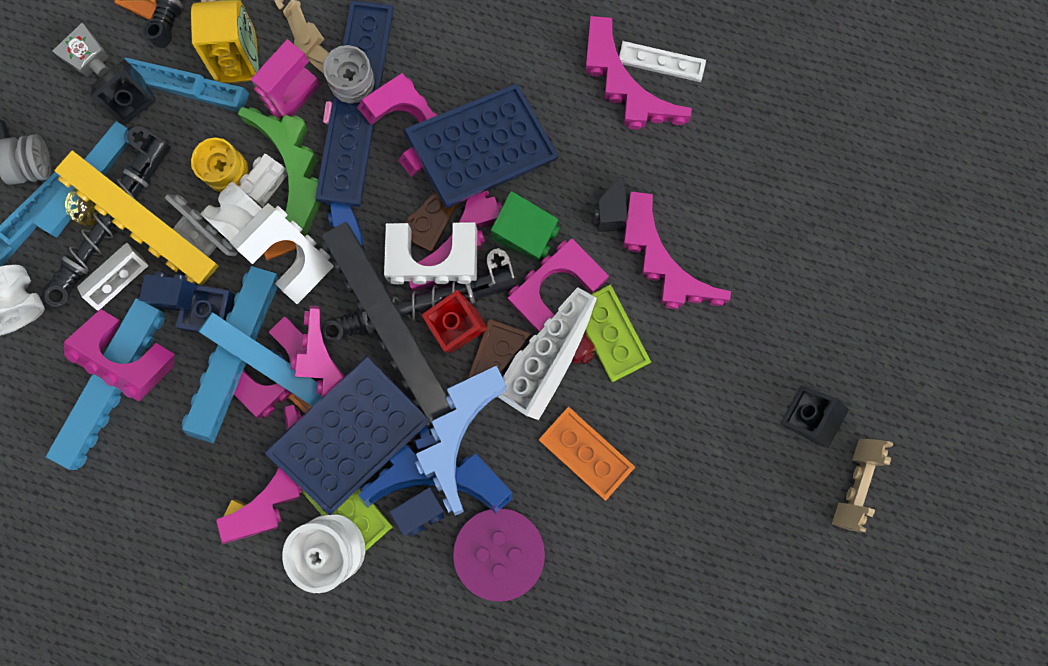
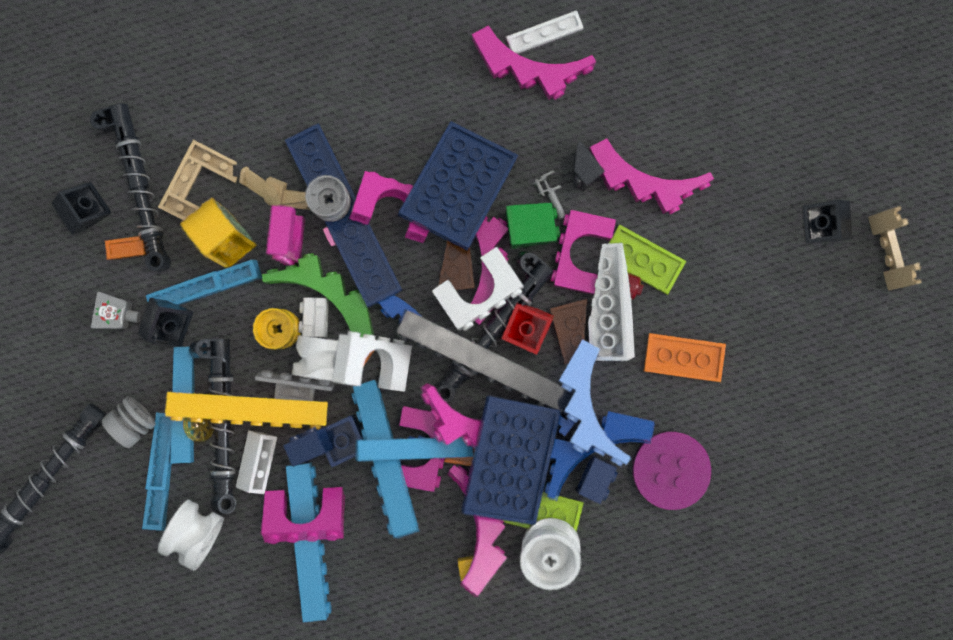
camera: 25 degrees left, 5 degrees up
(565, 214) = (551, 194): none -> light grey piece

